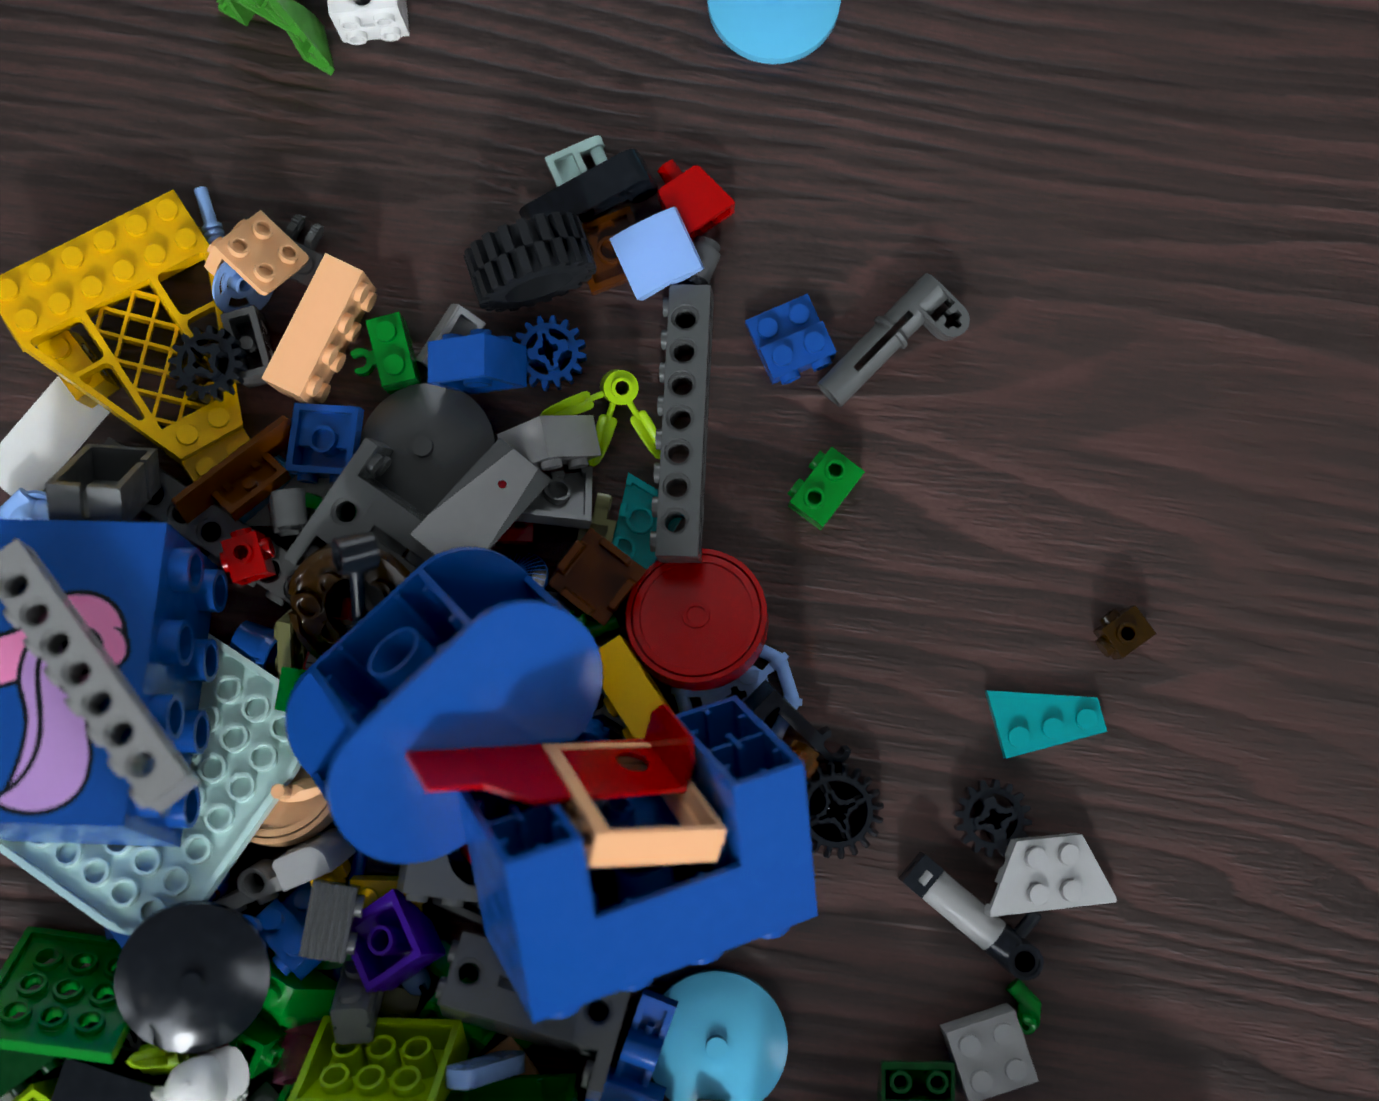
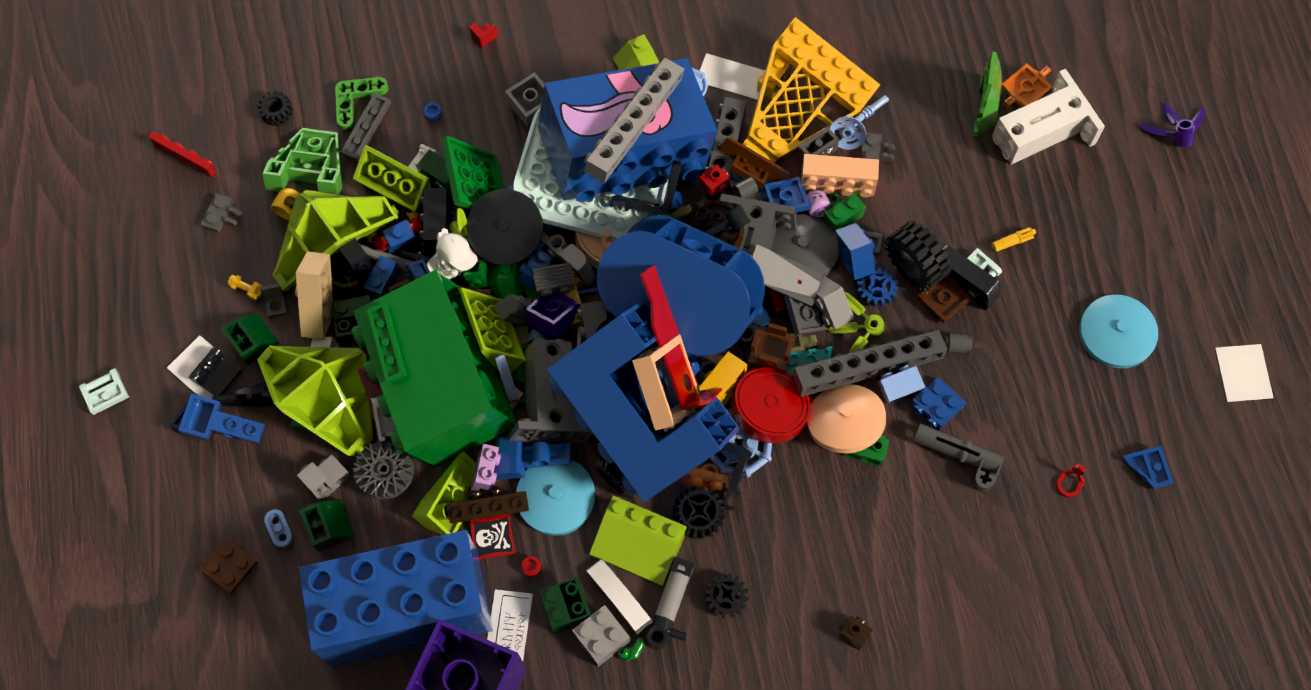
camera: 70 degrees right, 15 degrees down
(104, 484) = (724, 103): dark grey piece -> none
(223, 360) = (802, 129): black gear -> none
(255, 687) = (653, 207): none -> black hinge
(257, 253) = (865, 132): light nougat bracket -> none
(356, 389) = (818, 203): none -> lavender head
(549, 84) = (1013, 239): none -> yellow piece
(593, 626) = (744, 355): green arm -> none
(656, 253) = (952, 317): light blue slope -> none
(696, 196) = (987, 327): red torso -> none
(738, 386) = (900, 384): none -> light blue brick
(768, 501) = (846, 419): none -> light nougat dish
(858, 932) = (638, 540): none -> lime slope
(931, 998) = (619, 596): none -> white slope
(992, 165) = (1077, 469): none -> red piece
(1019, 51) = (1151, 467): none -> blue wing
(1042, 720) = (789, 607): teal wing -> none
(1048, 875) = (707, 634): light grey wing -> none

